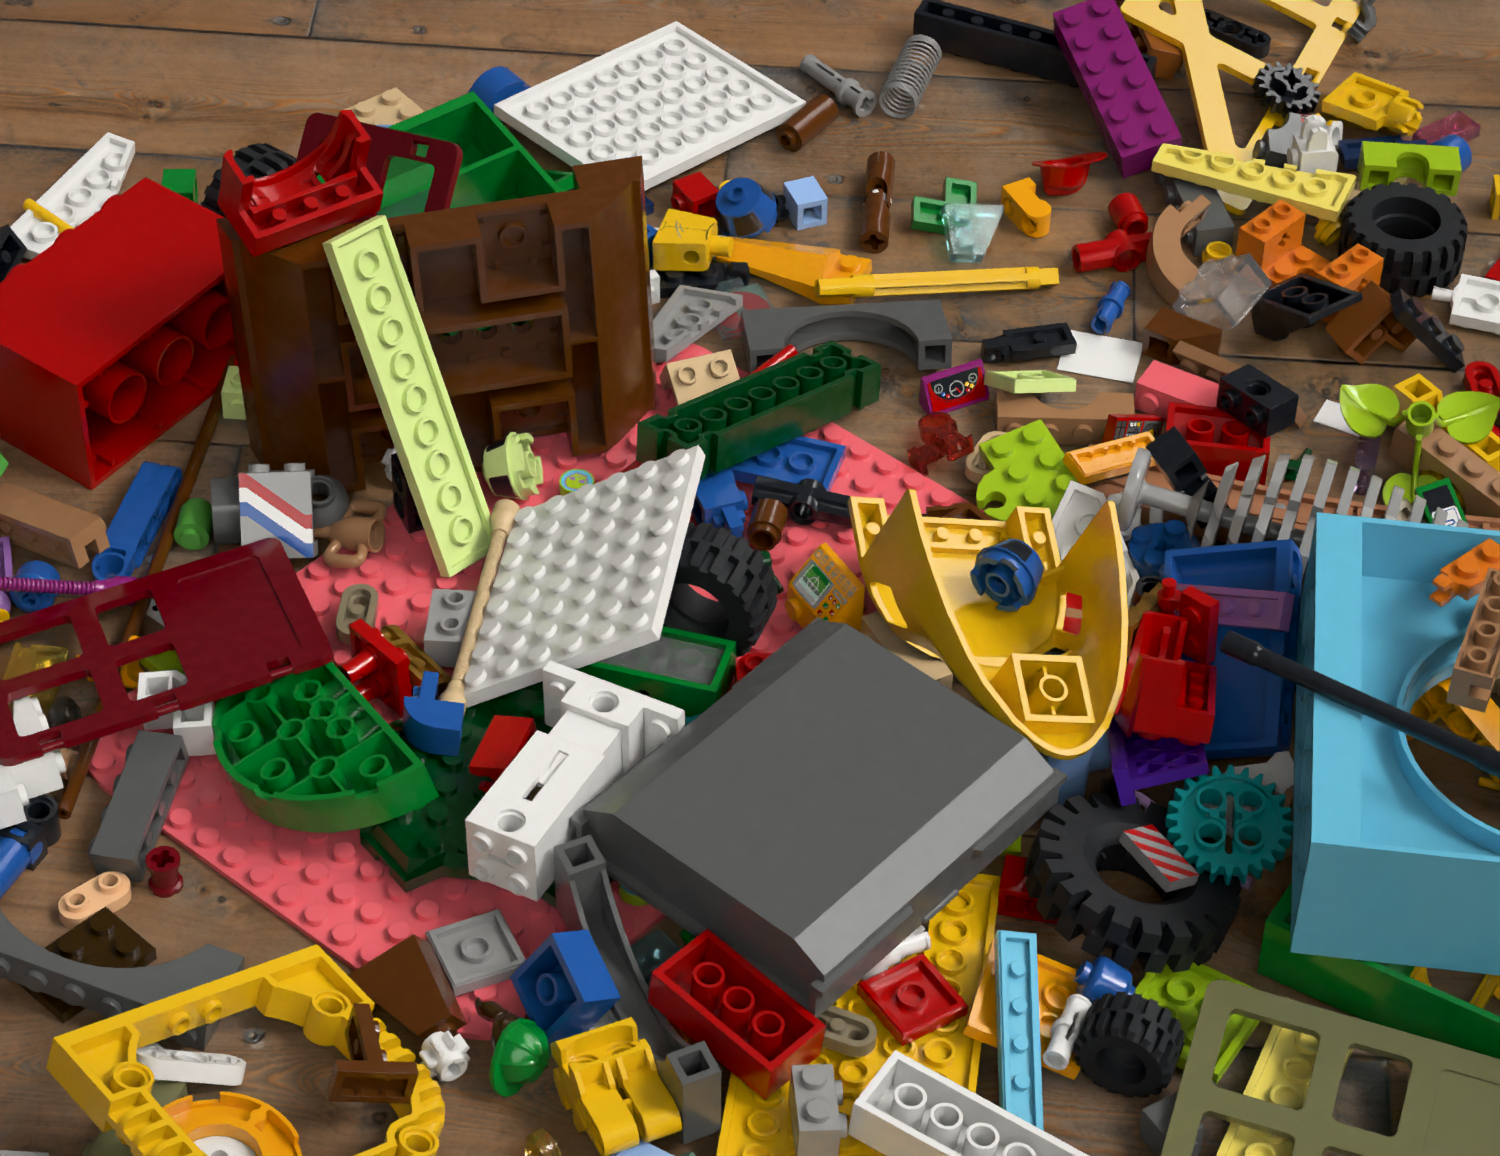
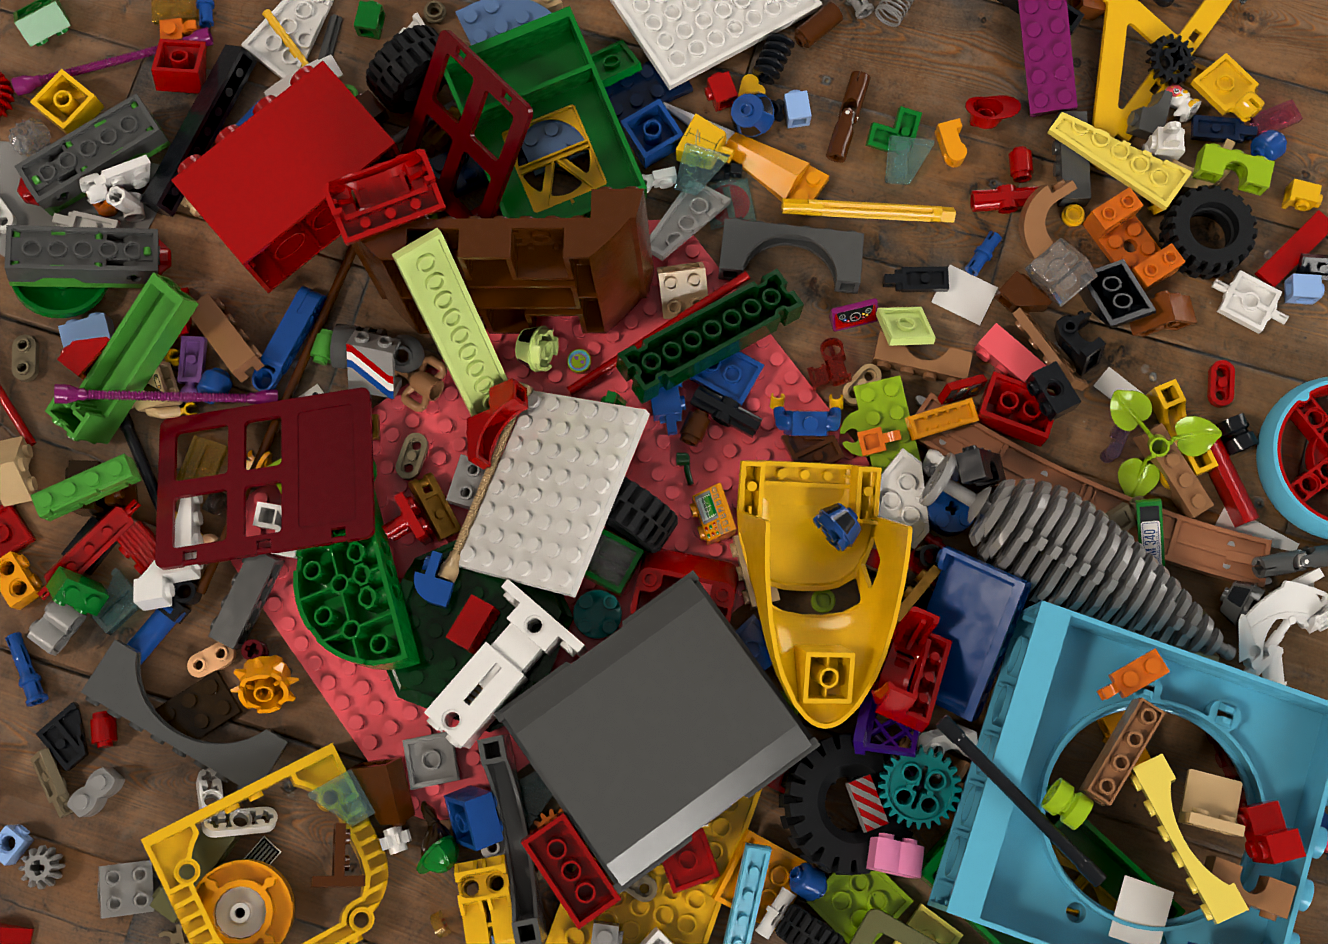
camera: 15 degrees right, 35 degrees up
(213, 903) = (264, 683): none -> light orange brick
(349, 986) = (344, 798): none -> clear light blue wing
(465, 544) = (484, 428): none -> red arch
(688, 257) = (698, 168): none -> clear light blue wing
(757, 154) = (772, 58): none -> black piece
(933, 478) = (807, 422): none -> blue torso
(1031, 488) = (874, 441): none -> orange plate
(1201, 614) = (942, 607): red plate -> none
(1223, 908) = (895, 857): none -> bright pink brick
(1249, 607) = (971, 612): medium lavender plate -> none
(1265, 355) = (1081, 352): none -> black tile
(1294, 465) = (1066, 434): dark green hand -> none
(1428, 330) = (1195, 334): black plate -> none
(1435, 700) = (1069, 805): none -> lime wheel

